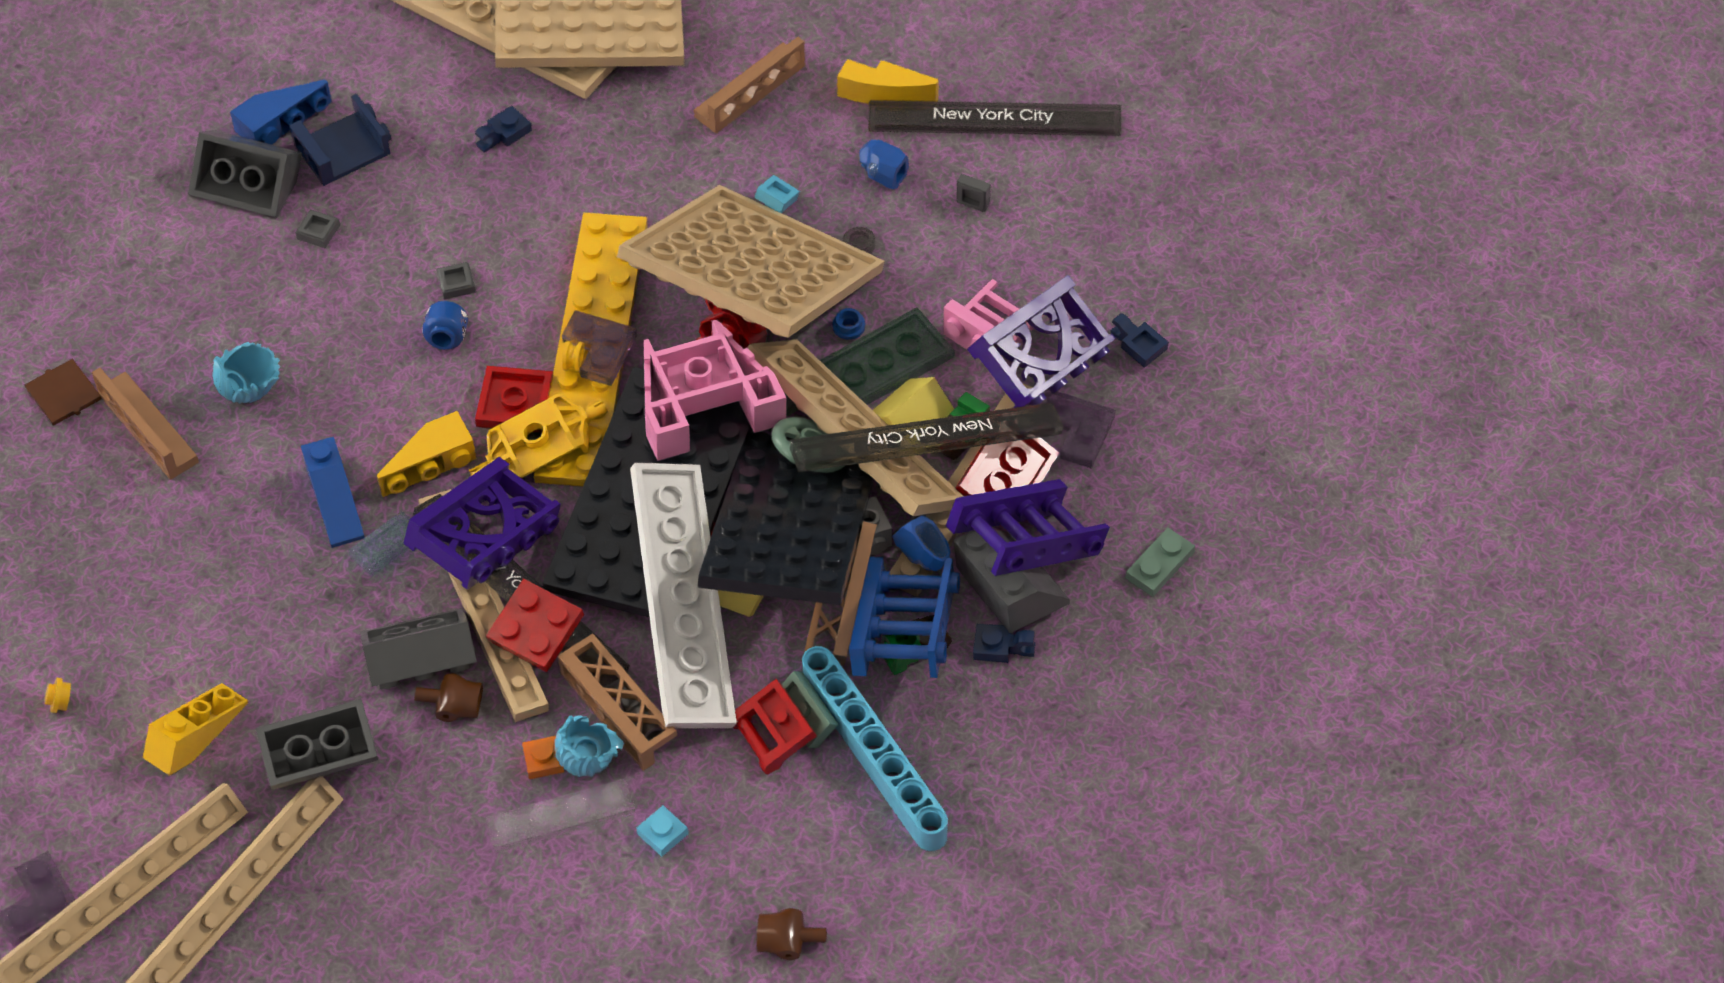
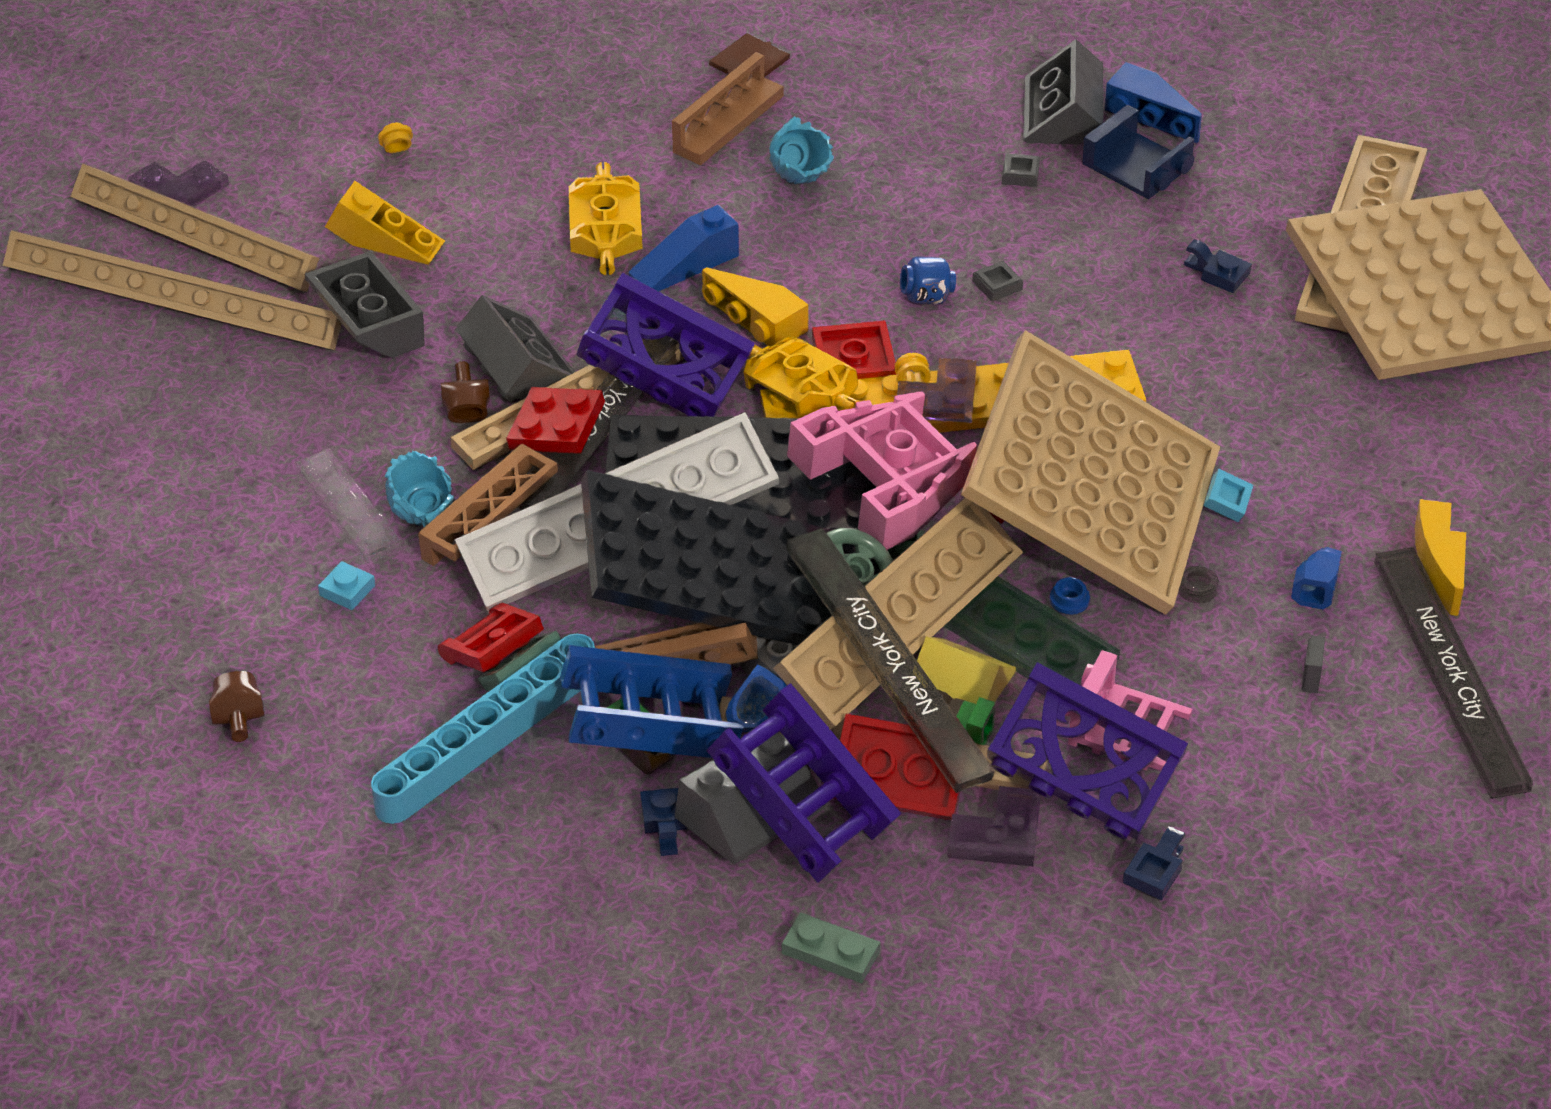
camera: 75 degrees right, 10 degrees down
(270, 556) = (609, 231): none -> yellow plate
(752, 85) = (1381, 443): medium nougat fence -> none

